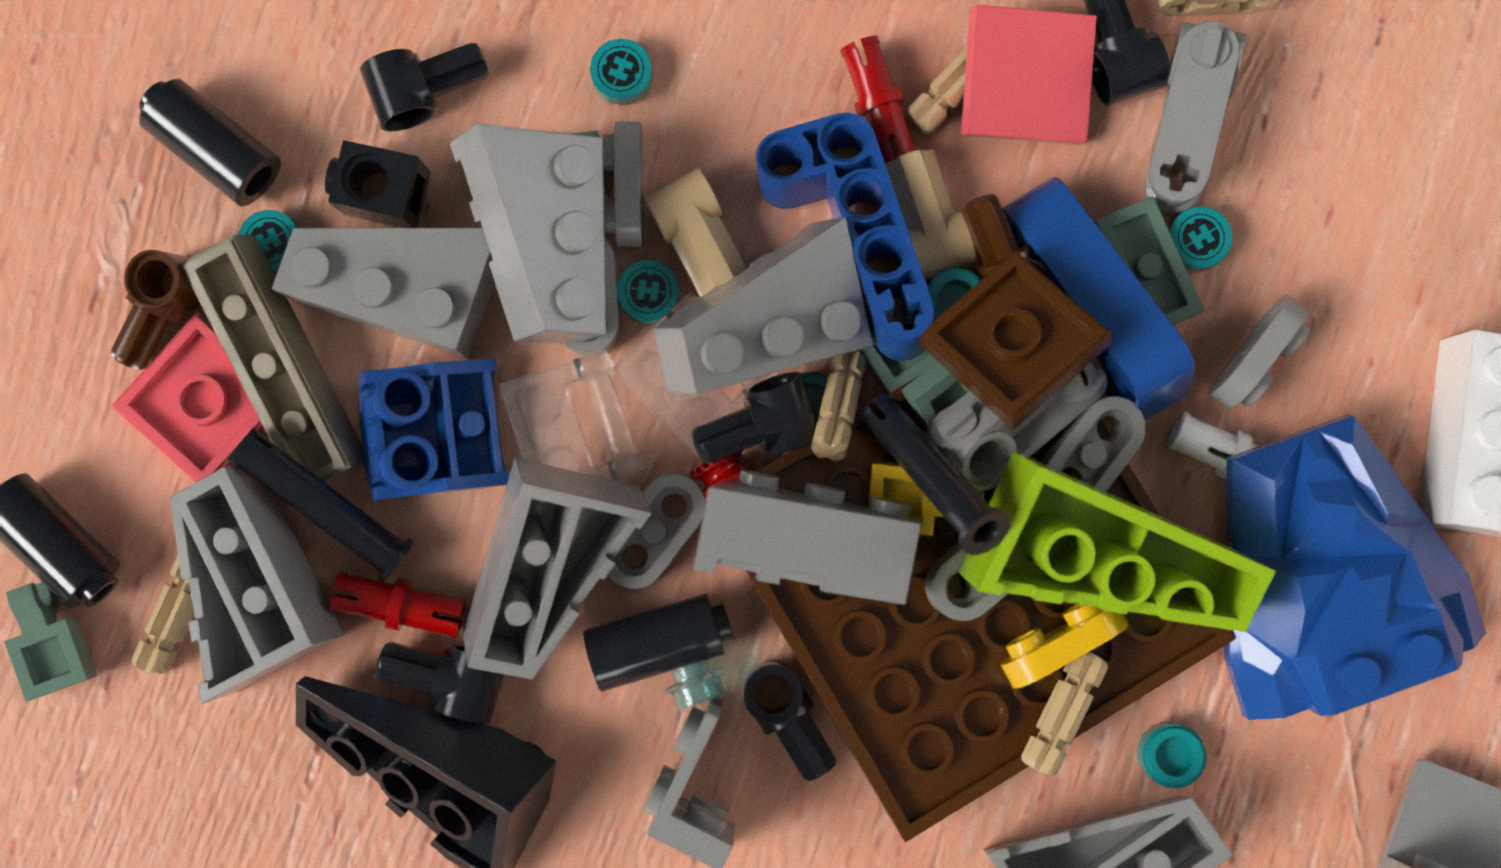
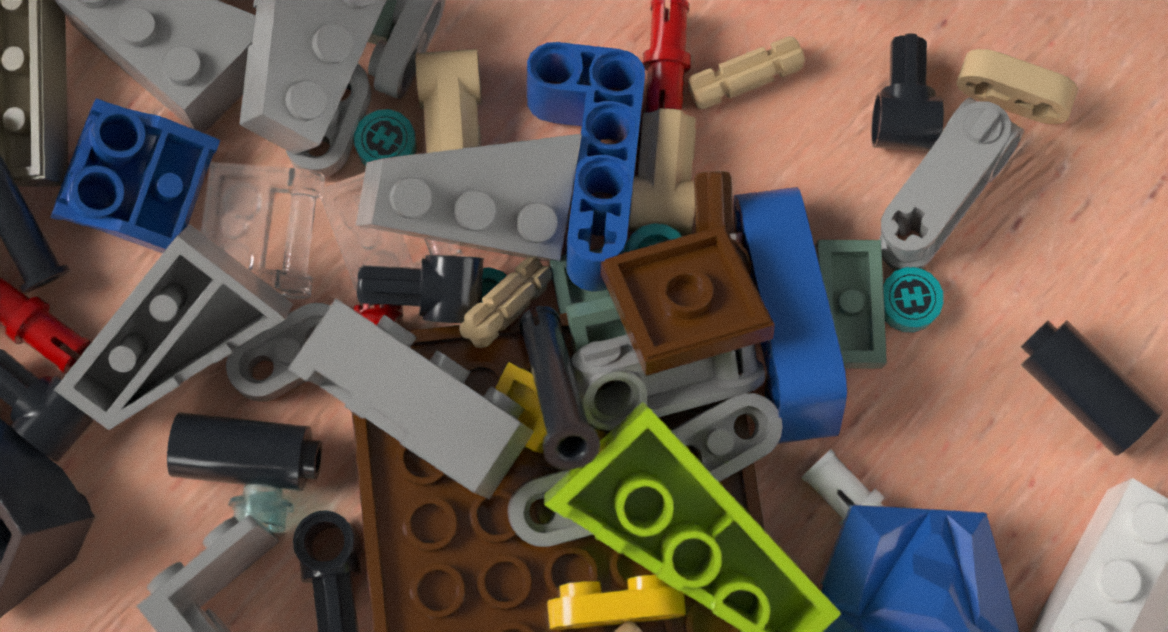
camera: 20 degrees right, 10 degrees down
(1028, 75) = (810, 89): coral tile -> none
(1275, 334) = (902, 438): light grey plate -> none
(1395, 254) = (1089, 386): none -> black brick

